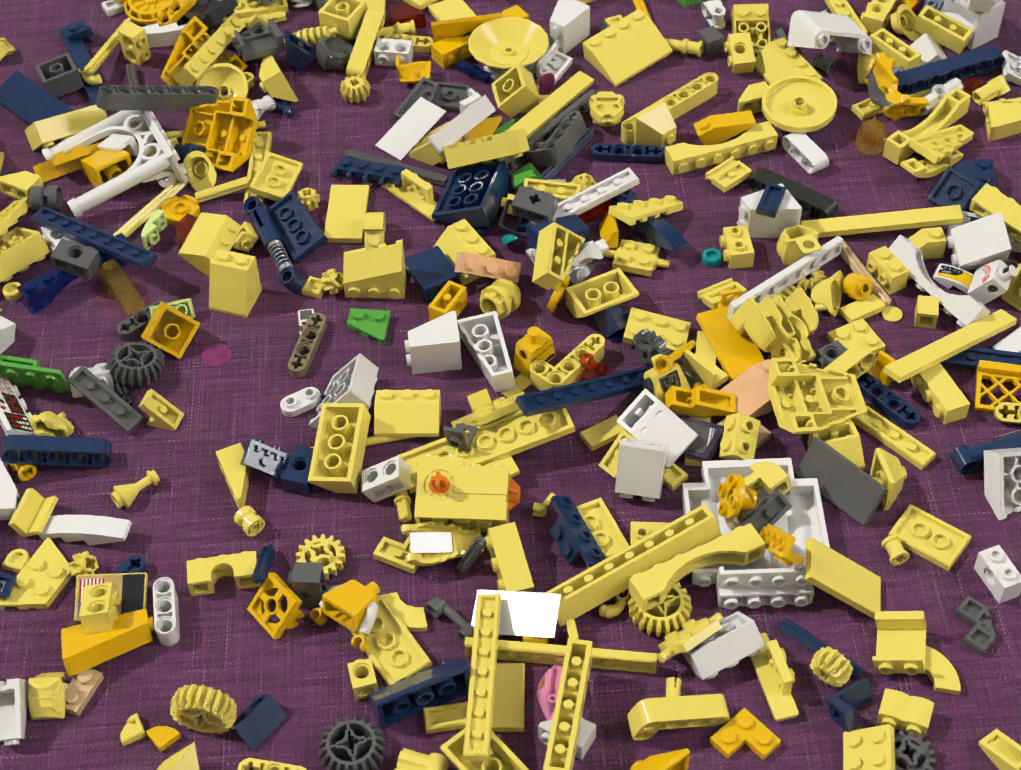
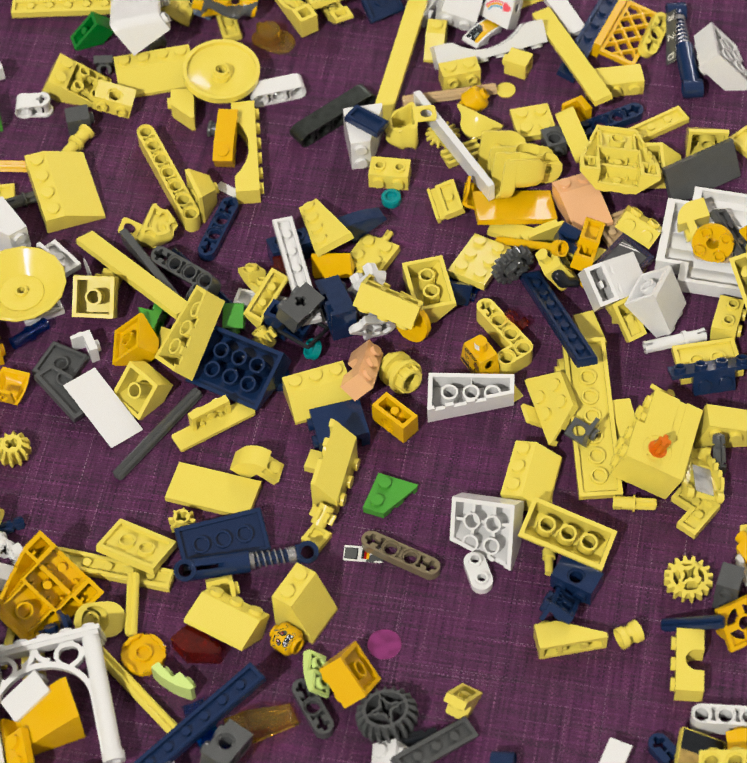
camera: 75 degrees left, 5 degrees up
(126, 494) = (564, 745): light yellow piece -> none
(199, 286) = (286, 639): none -> yellow head
(369, 171) = (159, 455): dark blue hinge -> none
(386, 479) = (618, 506): brick -> none
(434, 346) = (451, 432): white slope -> none
(461, 124) = (145, 347): white tile -> none
(616, 507) = (673, 340): none -> white pin
(689, 377) = (569, 234): none -> dark blue bracket
(728, 174) = (284, 156): light yellow plate -> none
(862, 308) = (497, 107): light yellow tile -> none

